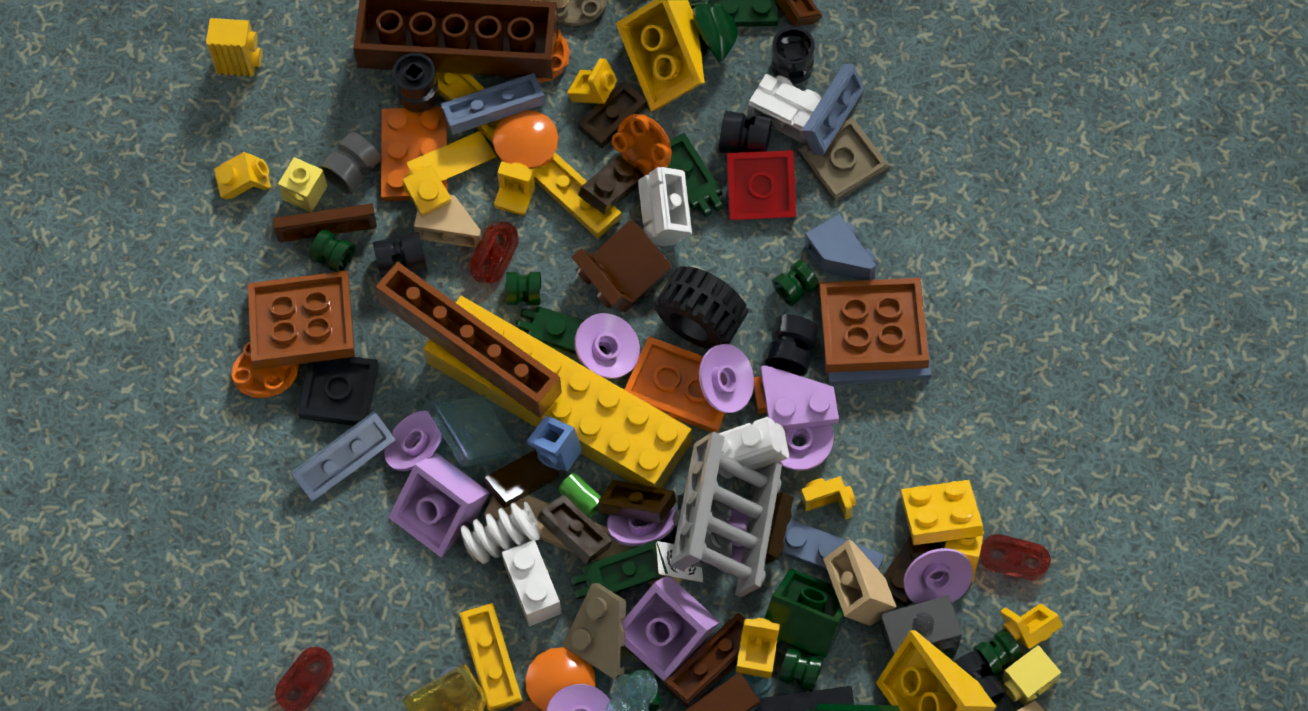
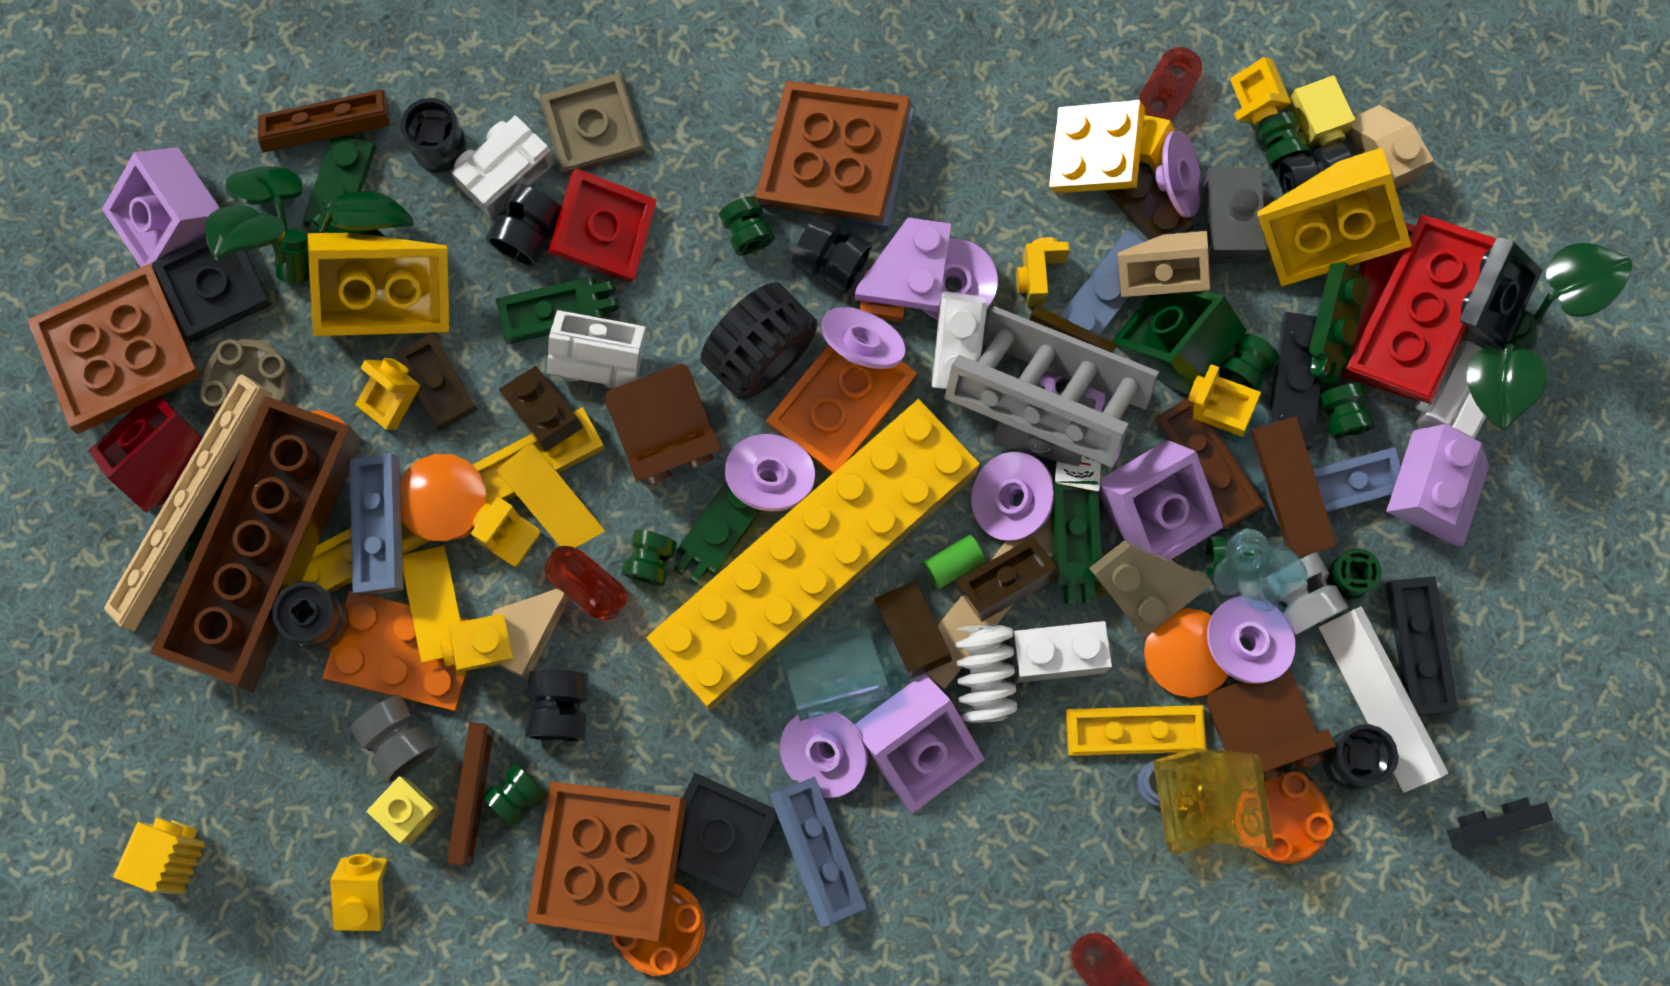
camera: 80 degrees left, 10 degrees up
(469, 339) = (730, 637): dark orange brick -> none
(548, 211) = (549, 498): none -> yellow sticker
(554, 450) = (890, 570): medium blue brick -> none
(637, 501) = (990, 493): dark brown plate -> none
(642, 143) = (498, 351): orange dish -> none
(833, 109) = (528, 109): sand blue tile -> none
(838, 251) = (720, 160): sand blue slope -> none

